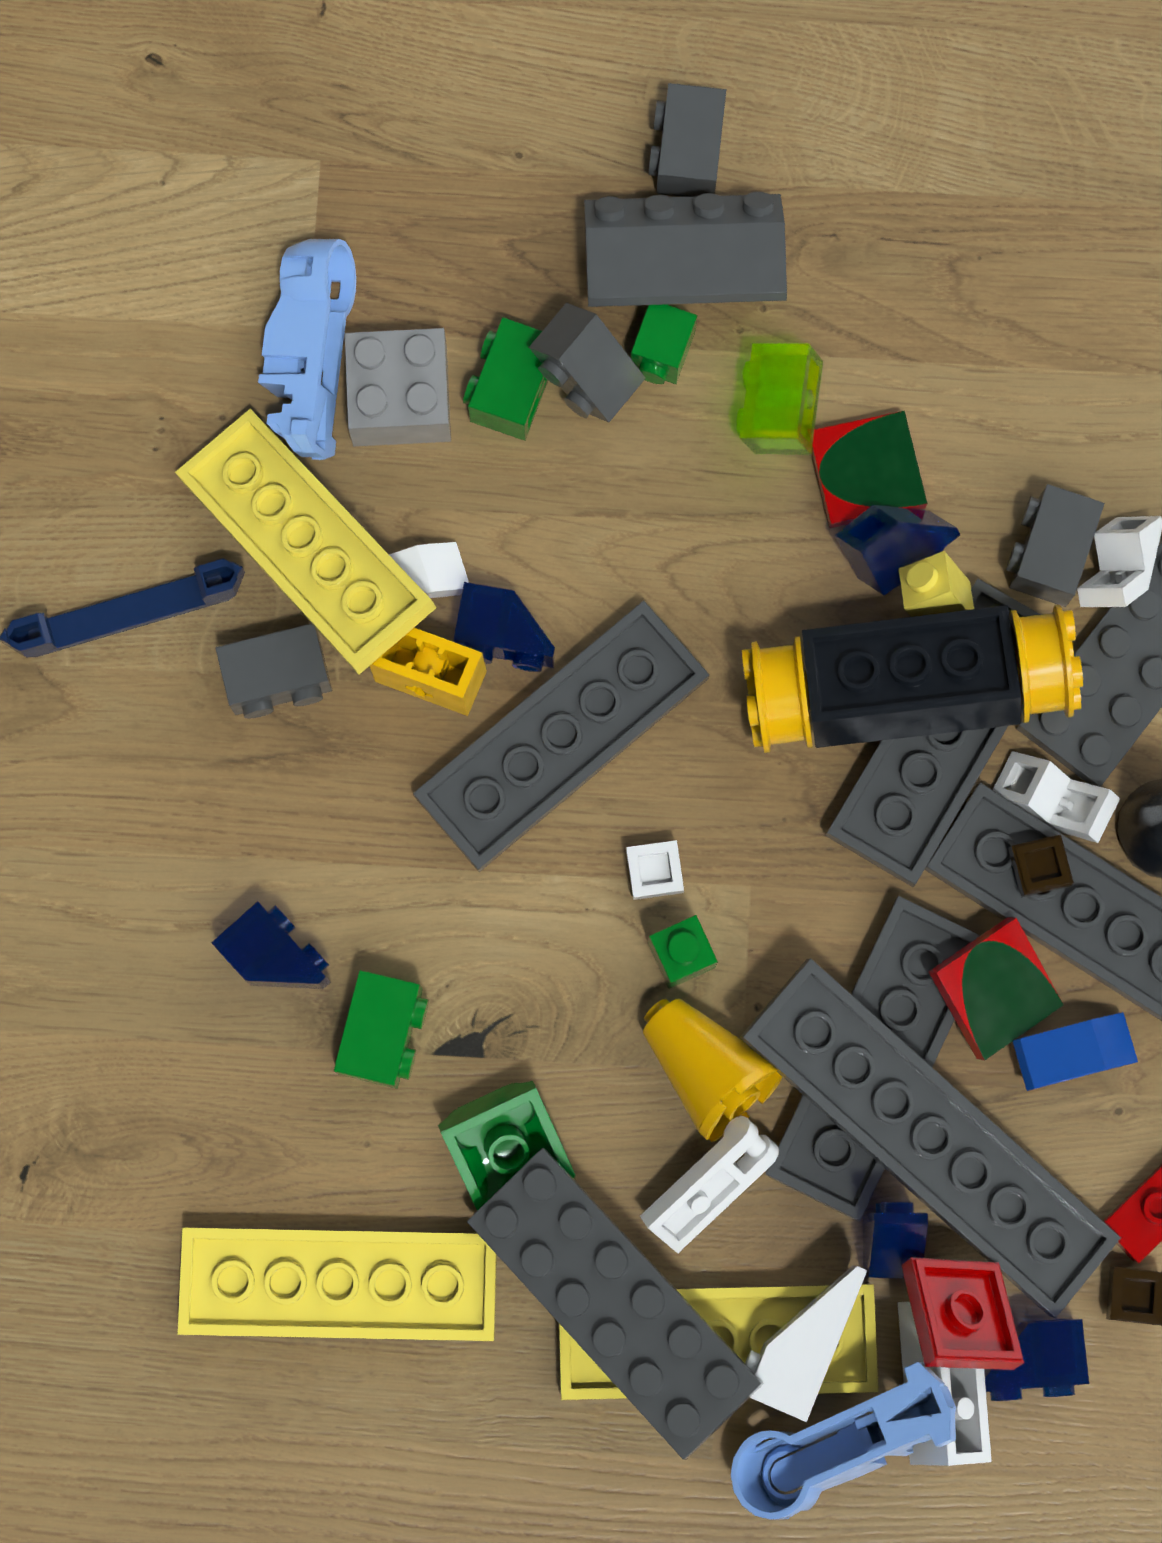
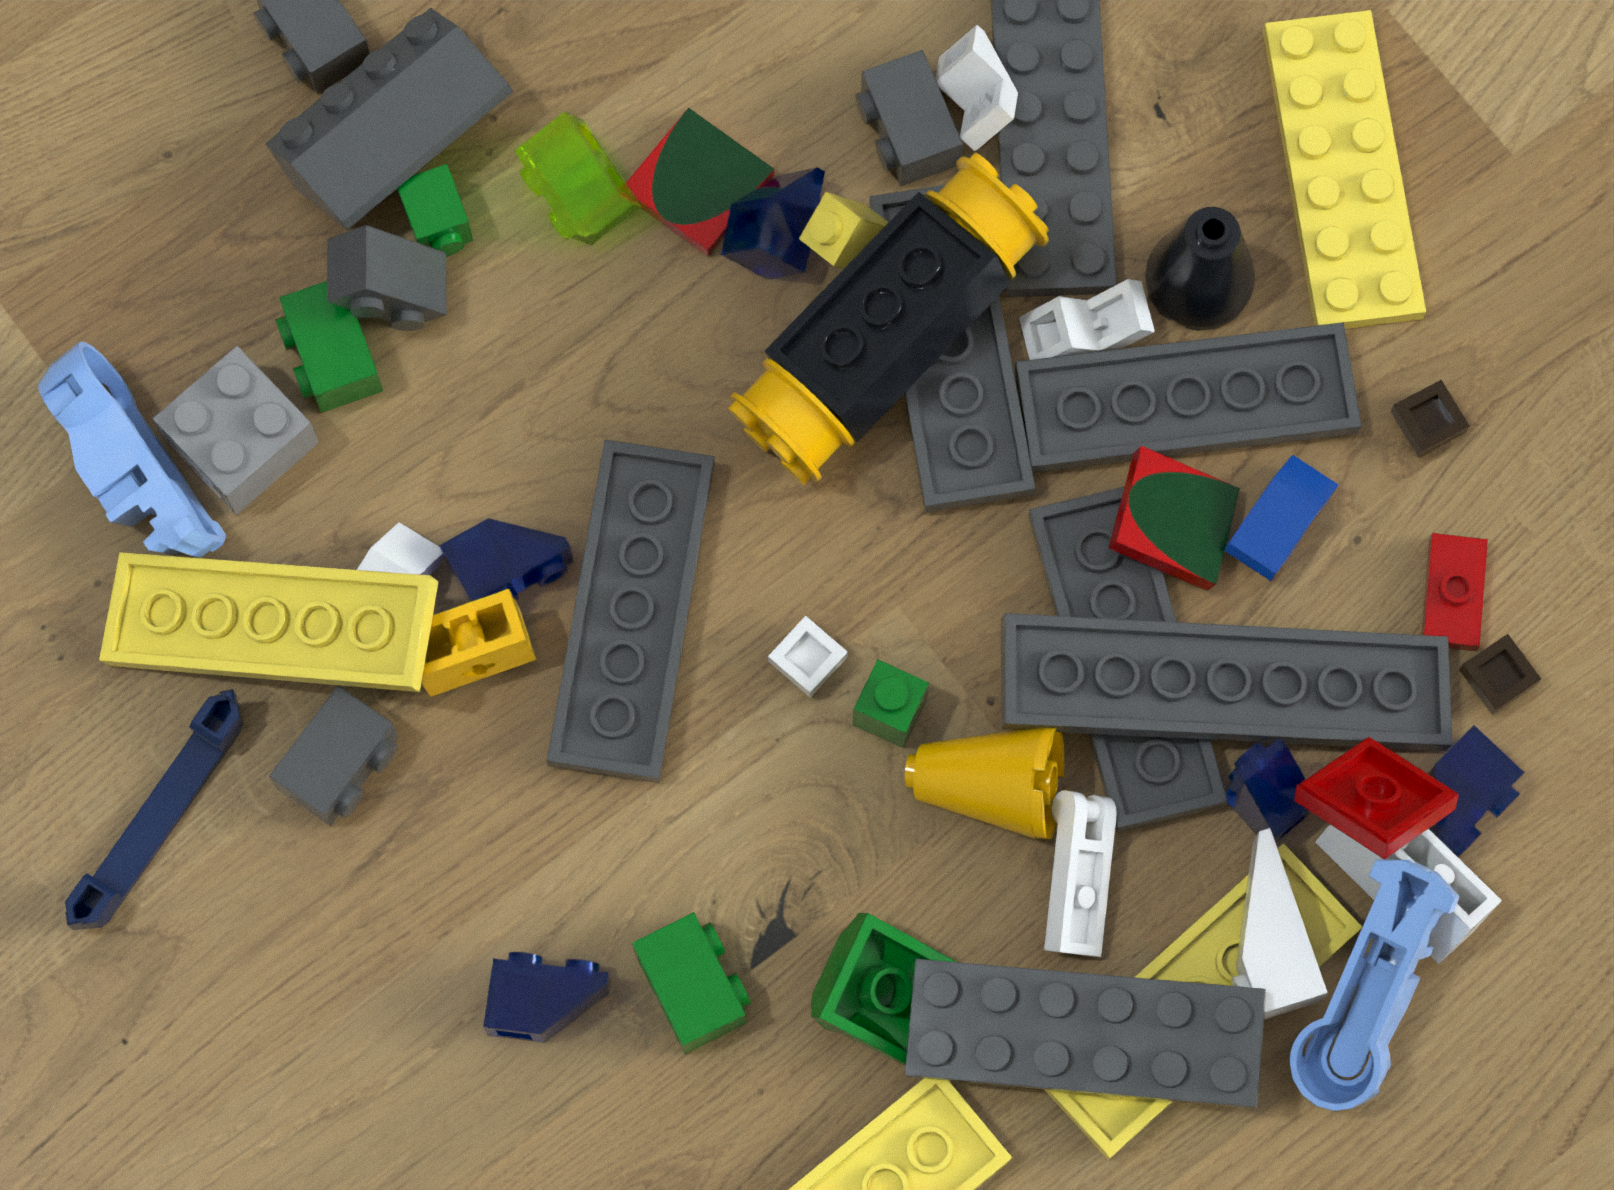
camera: 40 degrees left, 5 degrees down
(1041, 866) = (1125, 388): dark brown tile -> none

